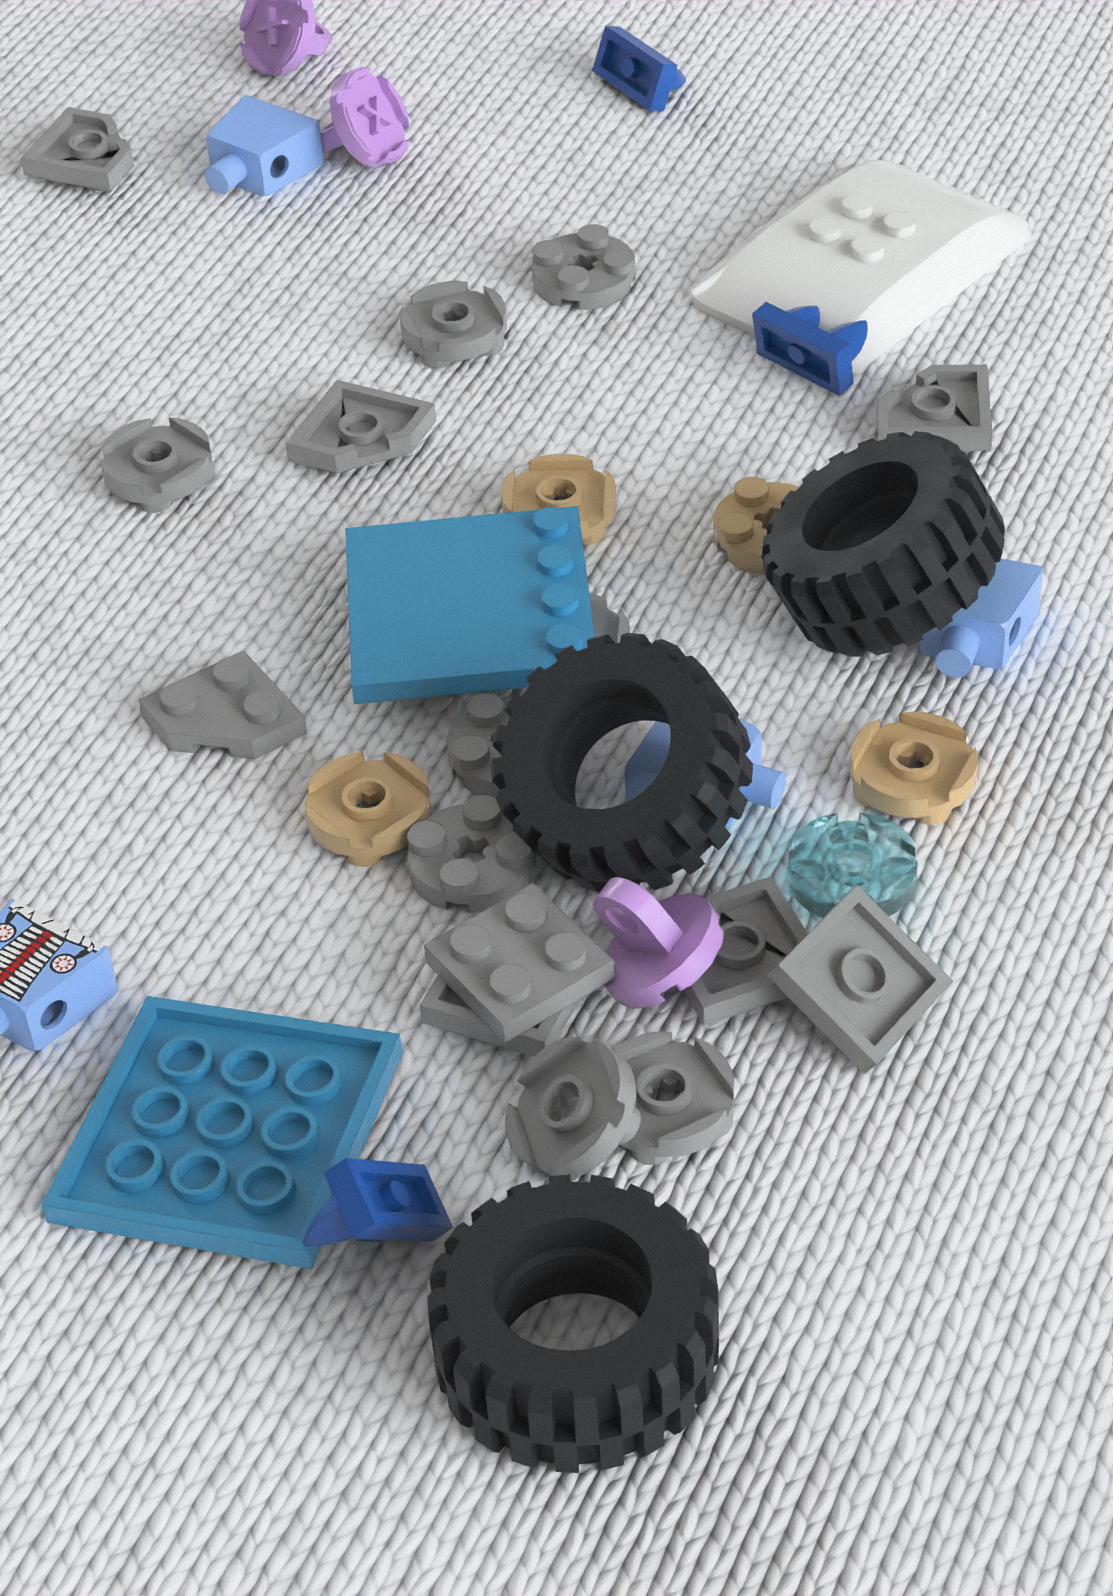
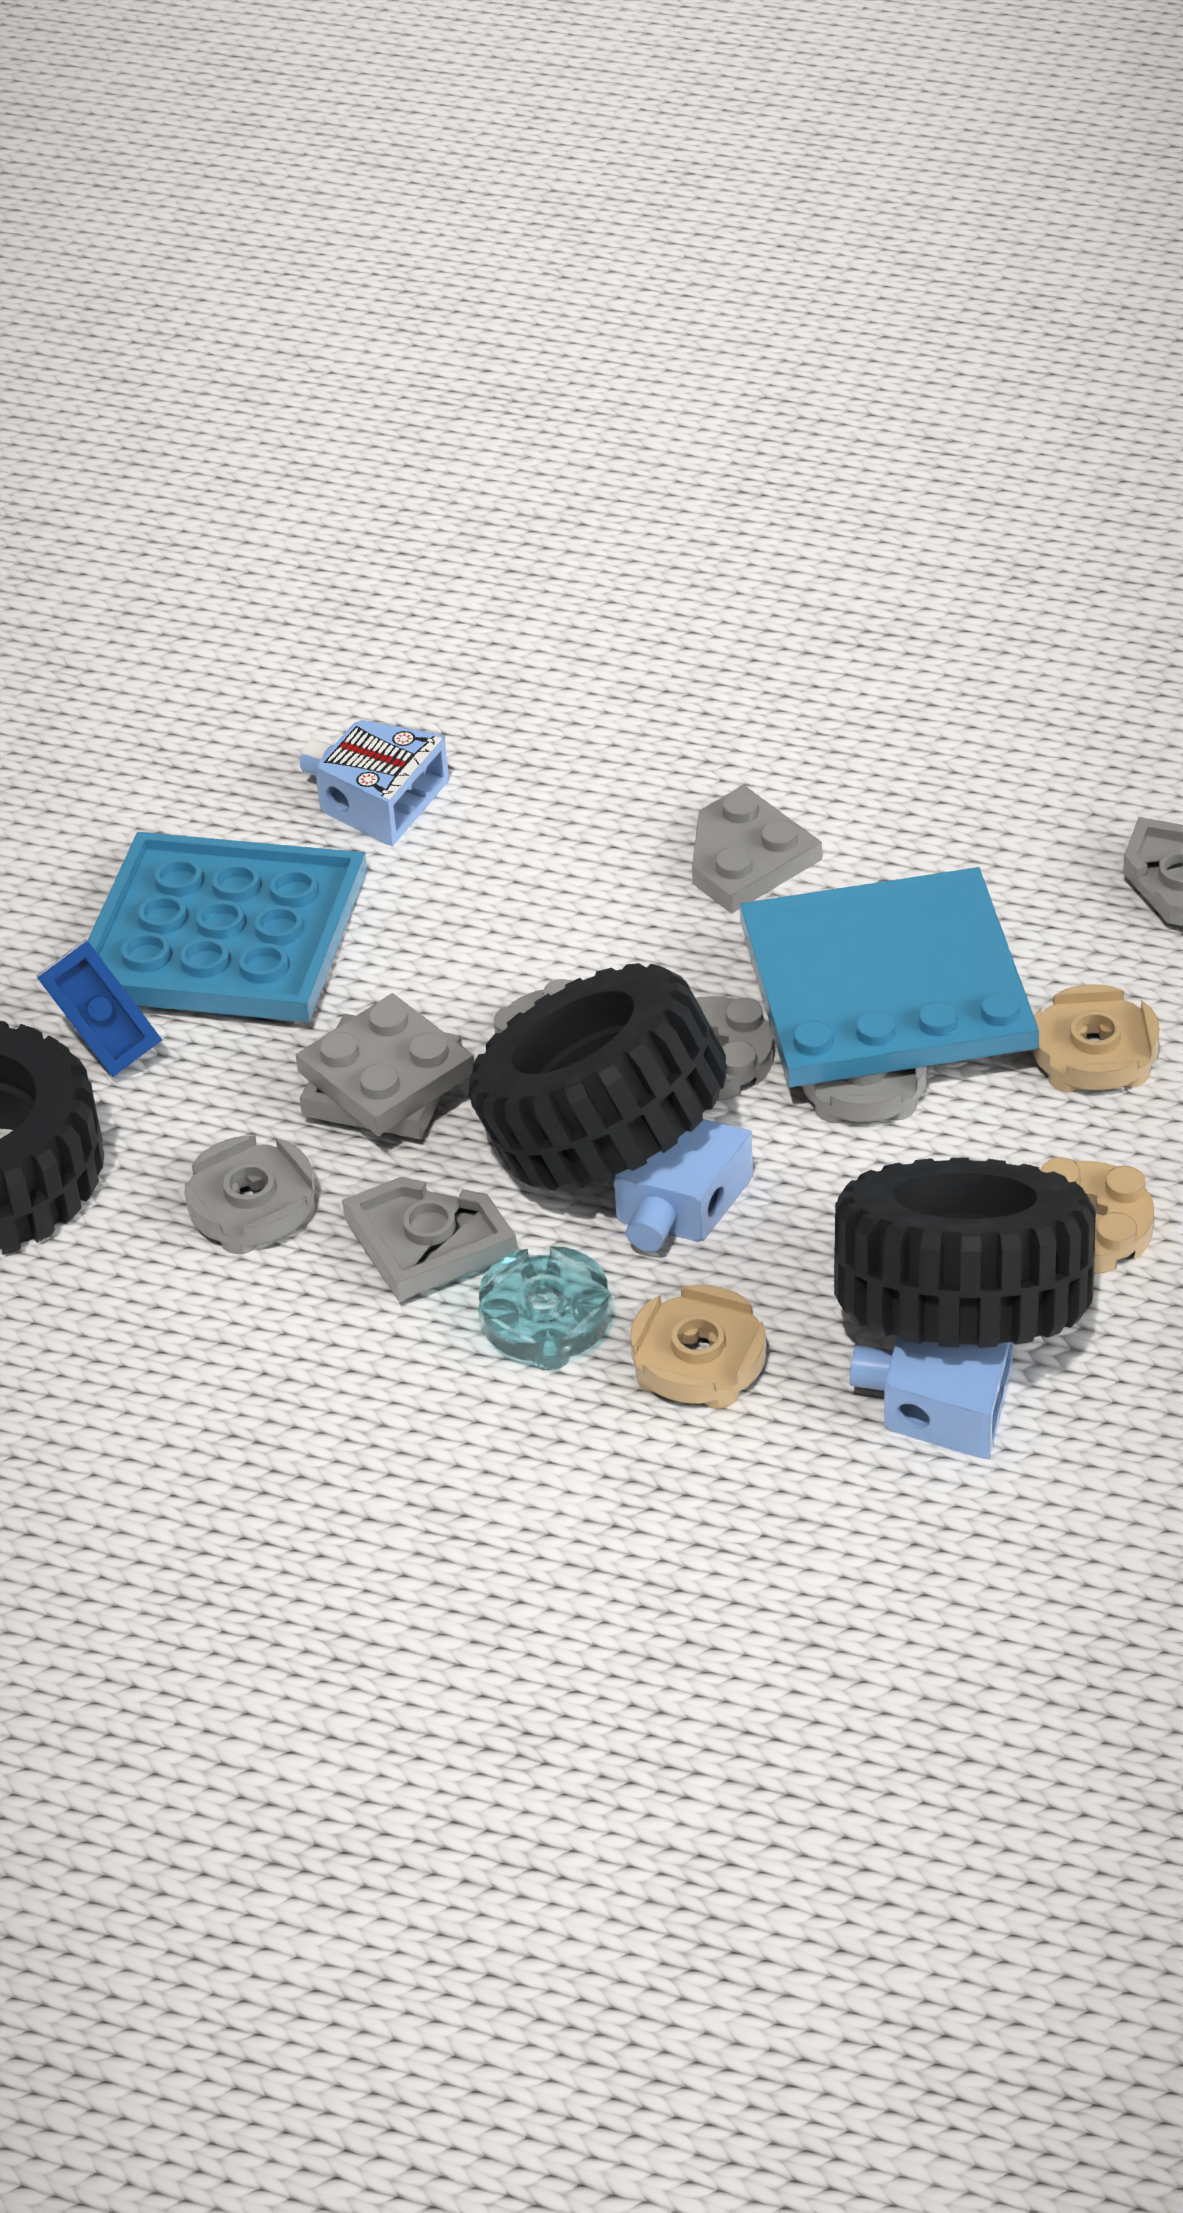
camera: 85 degrees right, 0 degrees up
(177, 469) = (1083, 746): light grey plate -> none
(372, 832) = (589, 934): tan plate -> none
(598, 1124) = (213, 1116): light grey plate -> none
(656, 941) = (408, 1141): lavender tile -> none
(860, 979) = (372, 1302): light grey plate -> none

